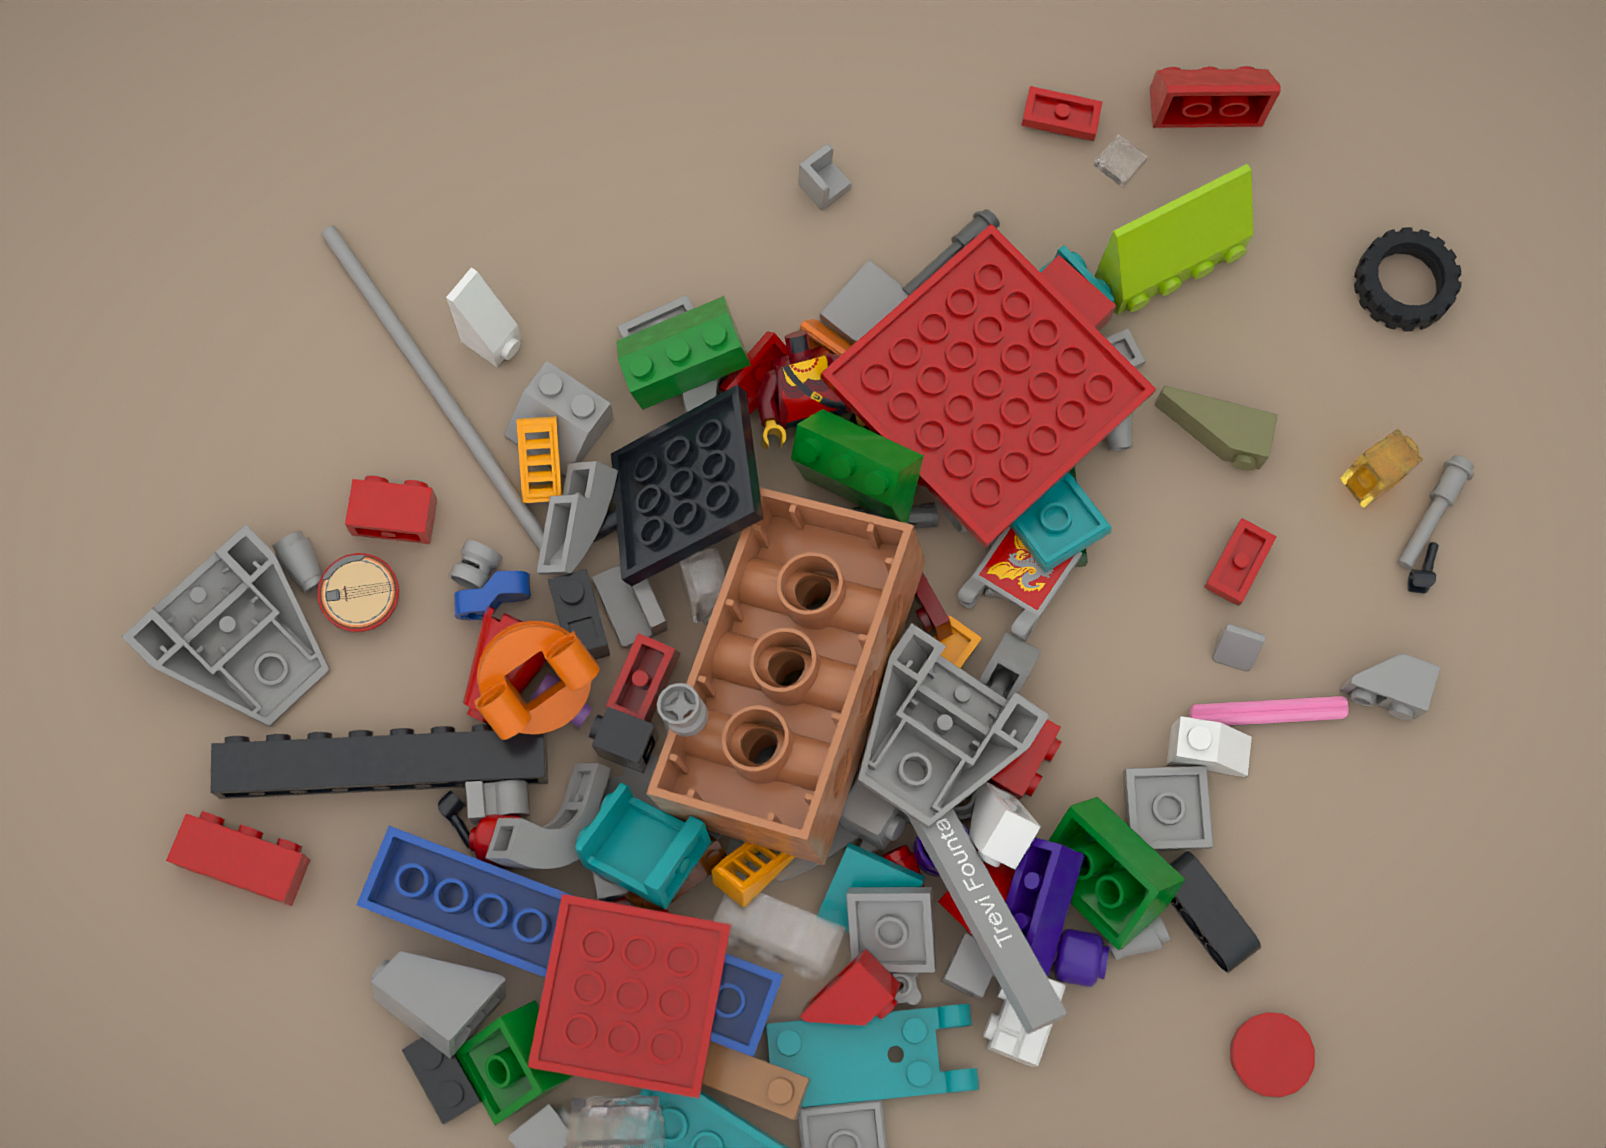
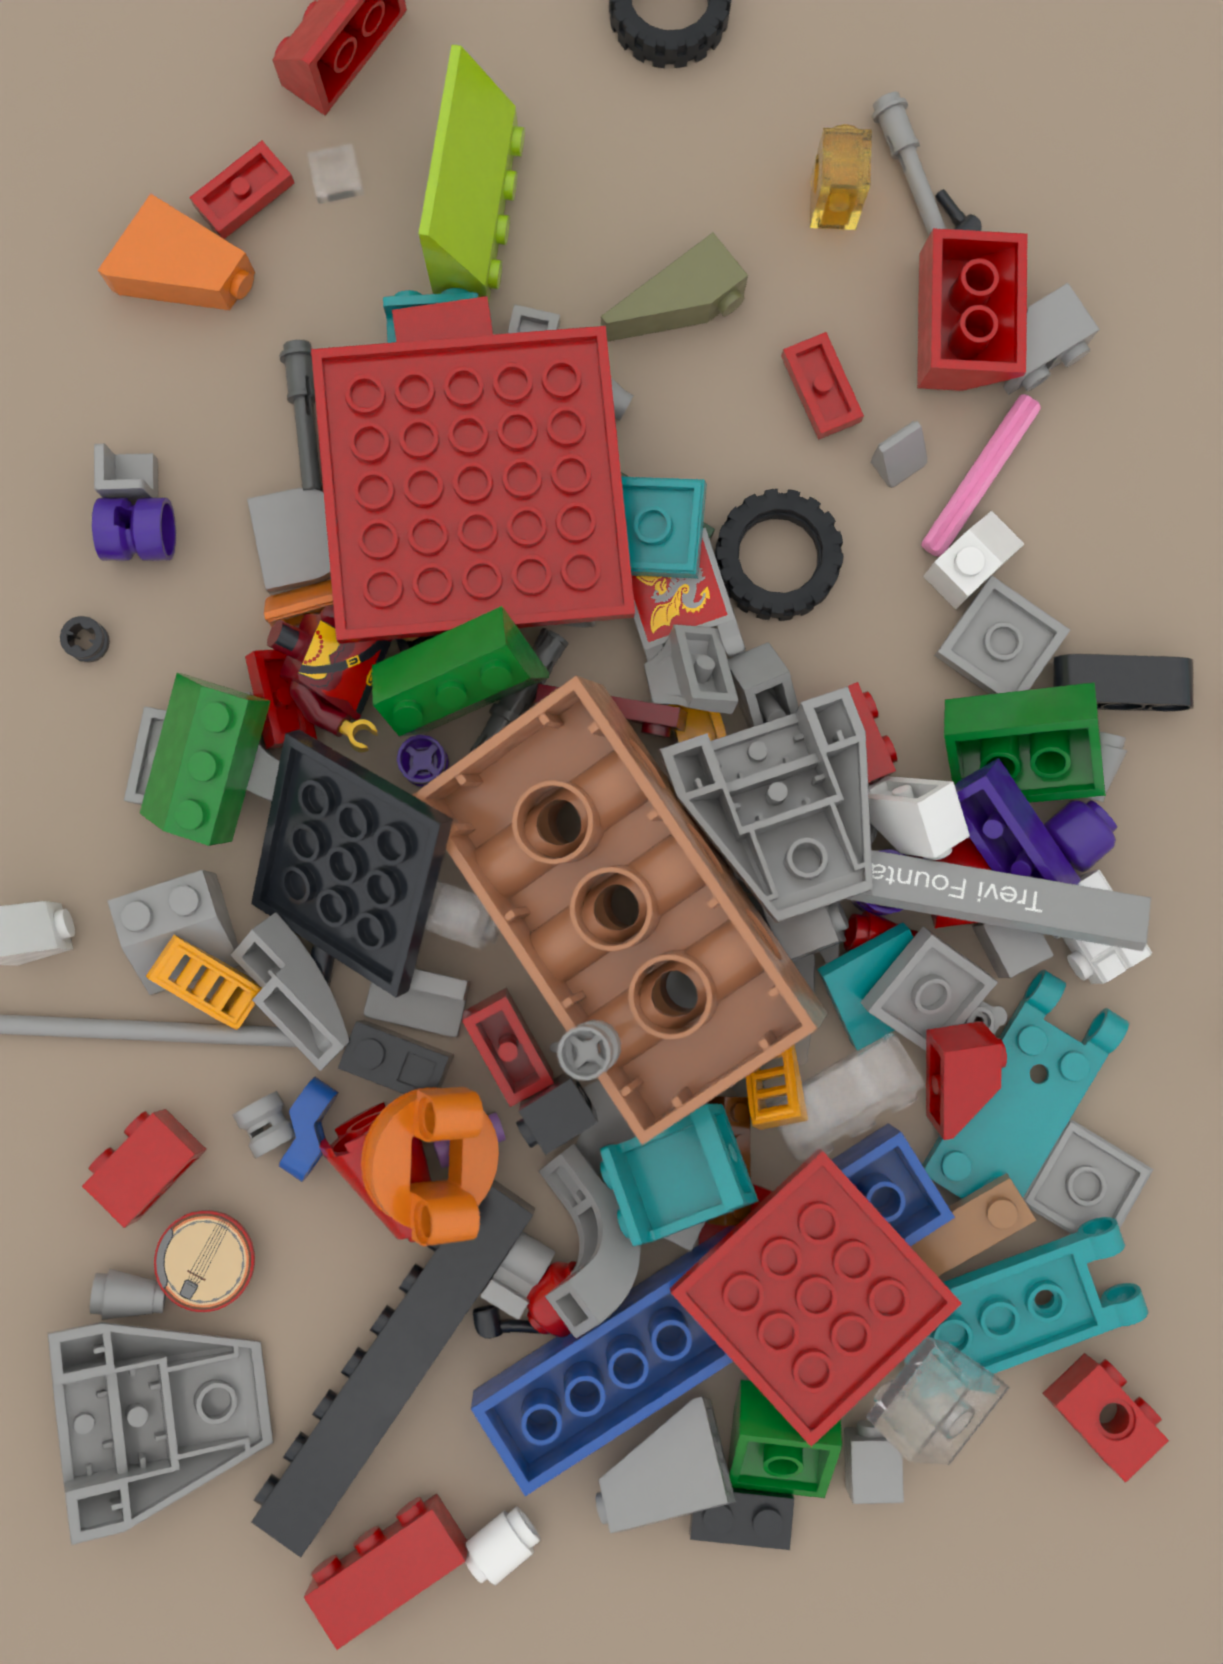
camera: 50 degrees left, 10 degrees up
(307, 924) = (501, 1546): none -> white brick
(698, 217) = (69, 634): none -> black bush
(788, 481) = (417, 755): none -> dark purple wheel
(790, 201) = (129, 529): none -> dark purple wheel
(981, 613) = (692, 671): none -> light grey slope
(983, 107) = (176, 261): none -> orange slope
(1127, 584) = (800, 512): none -> black tyre
(1370, 618) = (972, 309): none -> red slope

